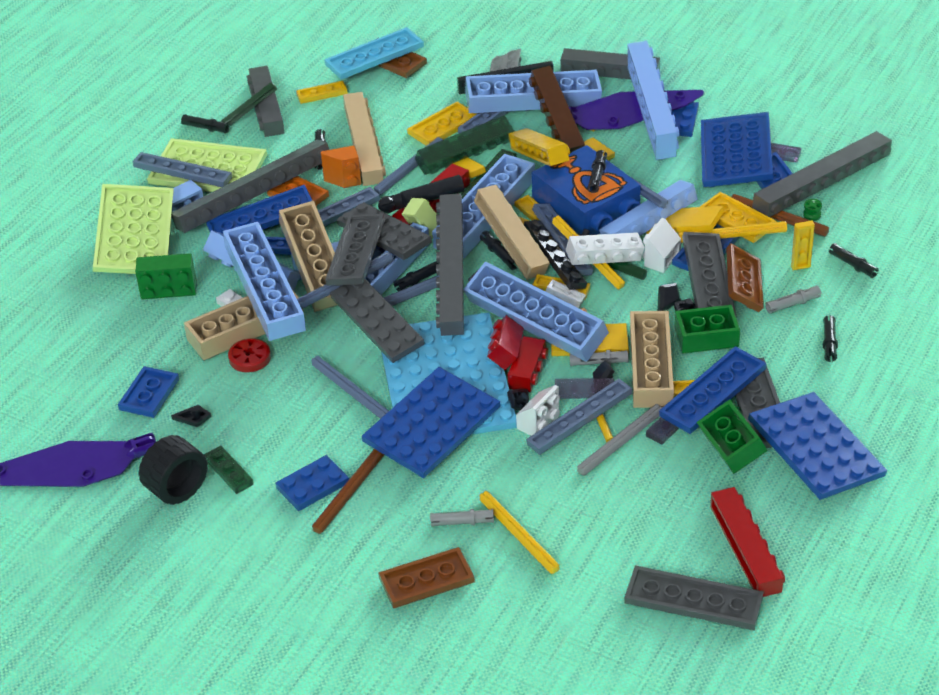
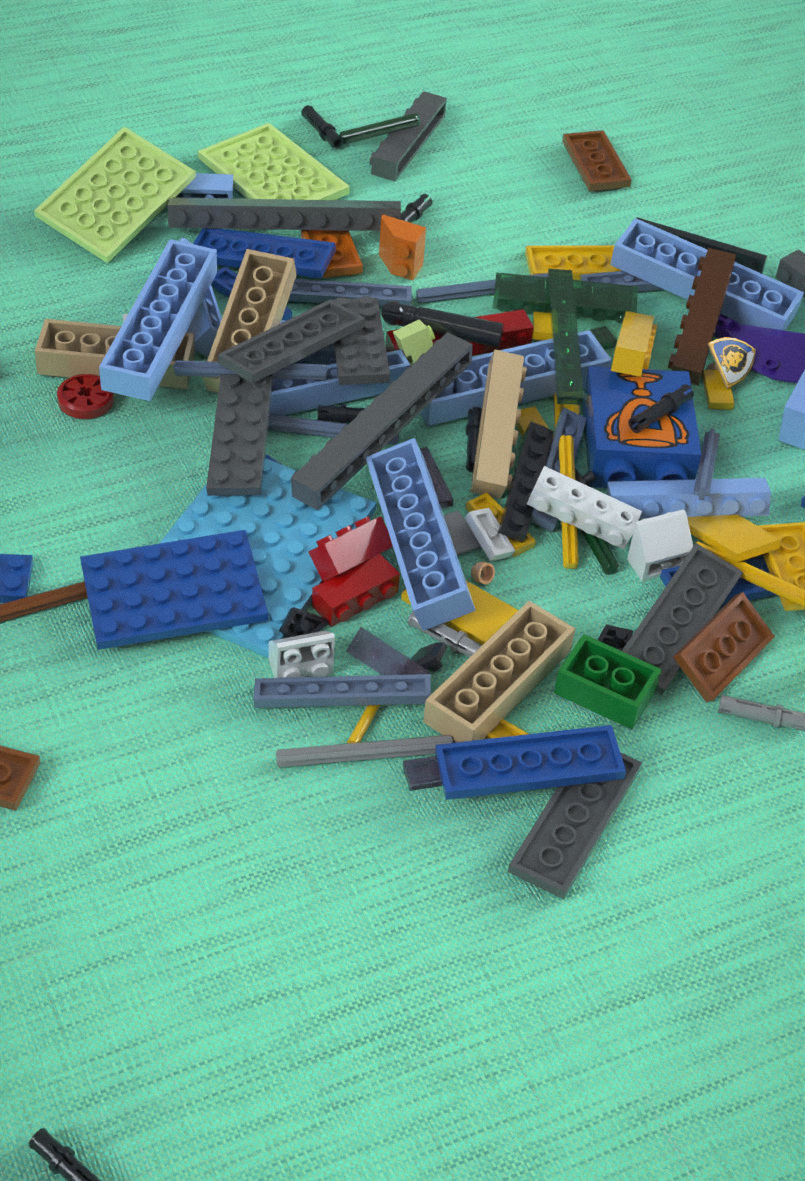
camera: 30 degrees right, 5 degrees up
(166, 276) = (92, 261): green brick -> none
(182, 169) = (236, 160): sand blue plate -> none
(321, 92) = (481, 158): yellow tile -> none
(348, 386) = (144, 517): sand blue axle -> none
(364, 138) = (464, 230): tan brick -> none
(374, 53) = (575, 143): medium azure plate -> none
(464, 517) = (95, 730): light grey pin -> none
(497, 163) = (565, 337): none -> clear green tile
(508, 60) = (726, 232): light grey hinge -> none
(519, 532) = (128, 787): yellow axle -> none
(593, 128) = (732, 359): none -> shield
(667, 296) = (610, 611): black piece -> none
(694, 597) = (228, 1014): dark grey plate -> none
(732, 436) = (485, 837): green brick -> none
(747, 542) = (364, 987): red brick -> none
(817, 445) = (587, 923): blue plate -> none
(830, 343) = (750, 799): black pin -> none

